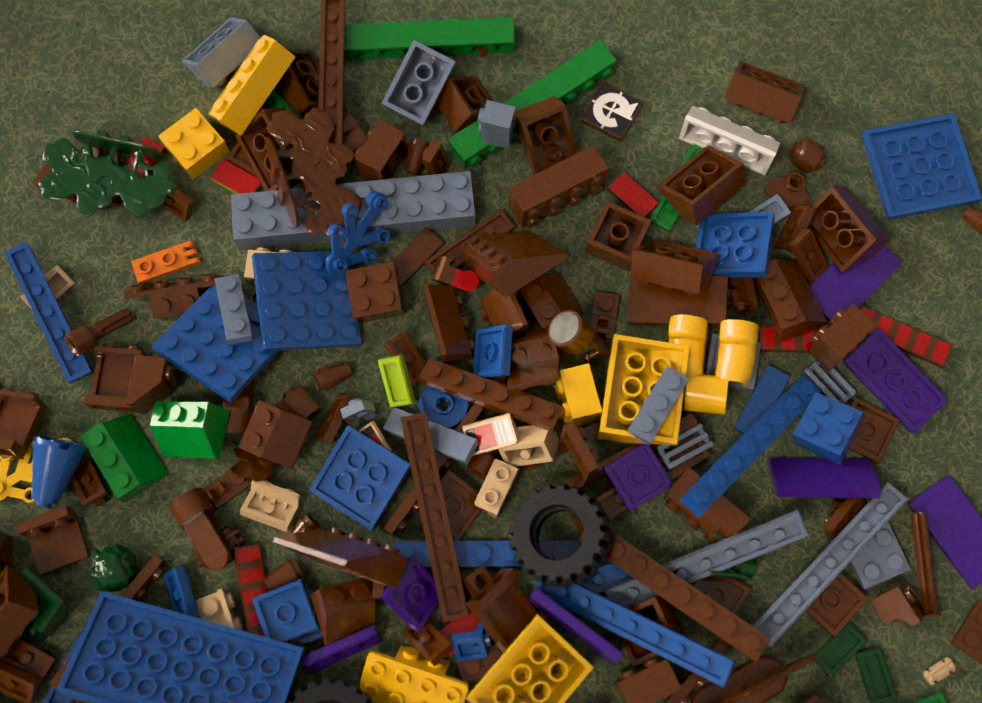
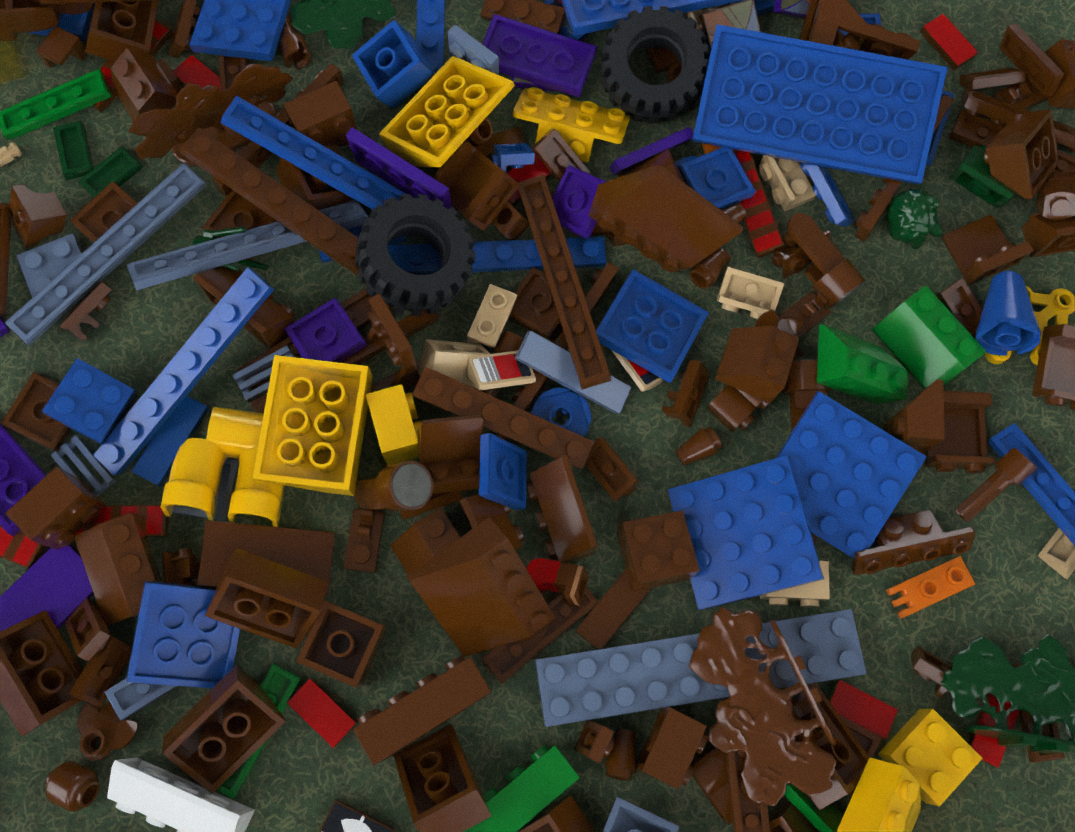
camera: 170 degrees right, 0 degrees up
(233, 309) = (835, 512): sand blue plate -> none
(355, 236) = (709, 582): blue plant -> none
(358, 409) = (661, 399): sand blue plate -> none
(396, 380) = (620, 440): lime tile -> none
(497, 124) = (512, 792): sand blue brick -> none
(658, 405) = (294, 397): sand blue plate -> none
(824, 478) = (108, 343): dark purple tile -> none

